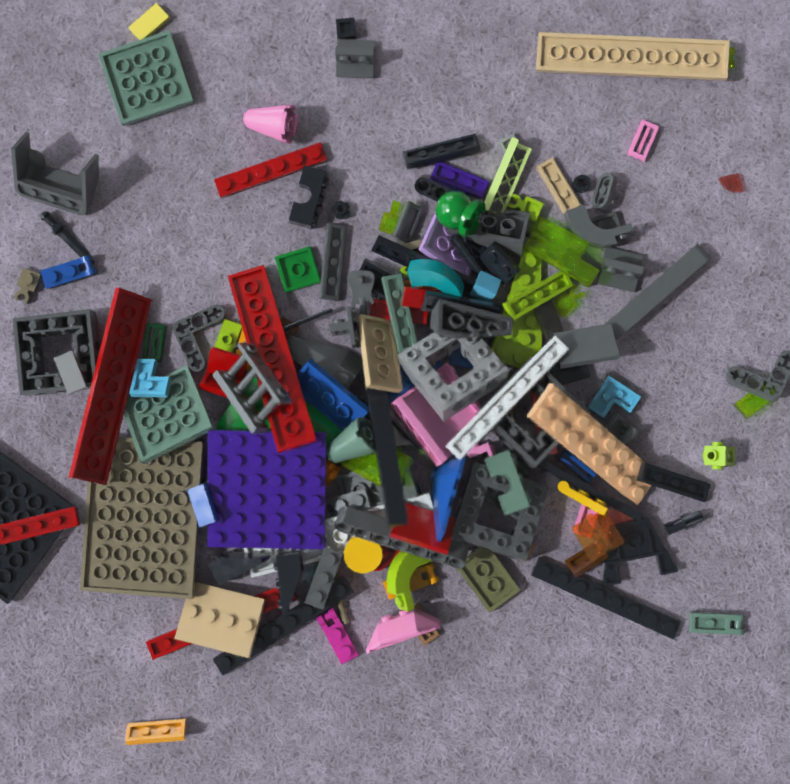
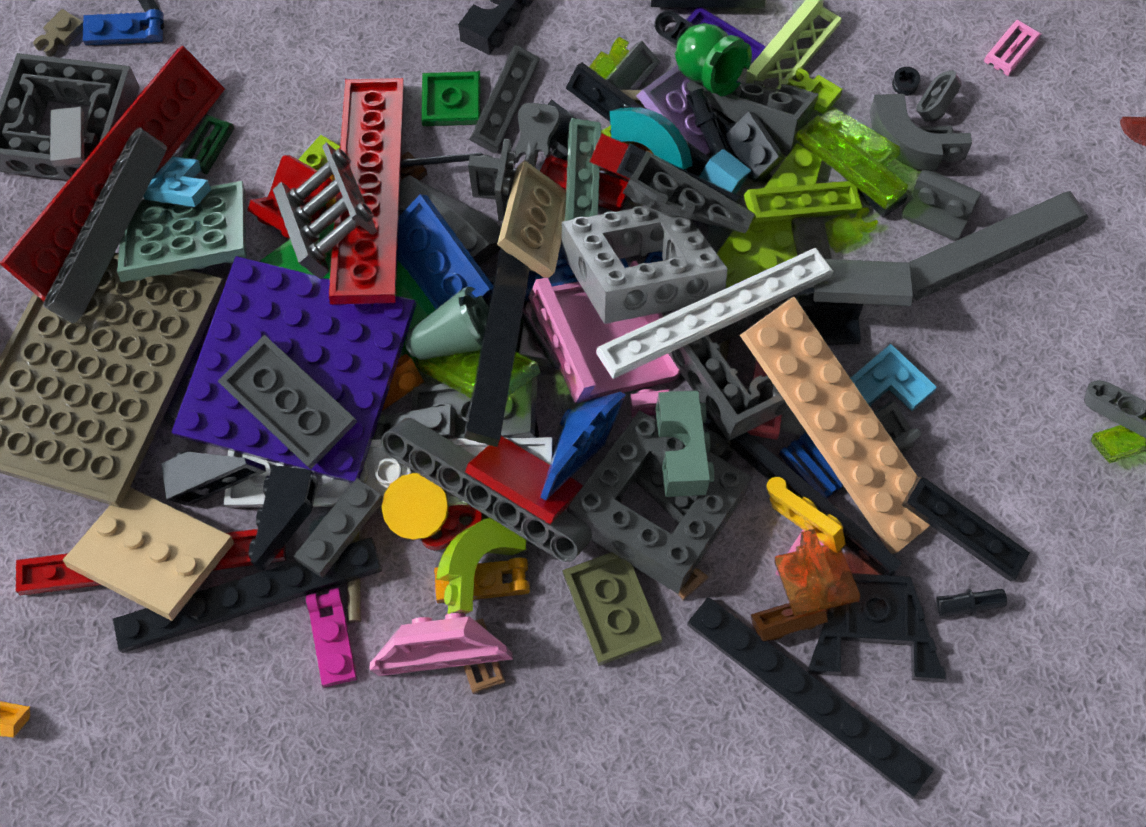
camera: 15 degrees right, 20 degrees down
(118, 426) = (105, 226): none -> dark grey beam
(189, 334) = (262, 144): dark grey beam -> none
(203, 505) = (187, 362): tile -> none
(271, 517) = (287, 401): none -> dark grey plate
(338, 214) = (539, 43): black plate -> none
(558, 185) = (867, 70): tan tile -> none
(715, 623) = (998, 789): sand green plate -> none
(719, 455) = (1052, 505): lime brick -> none

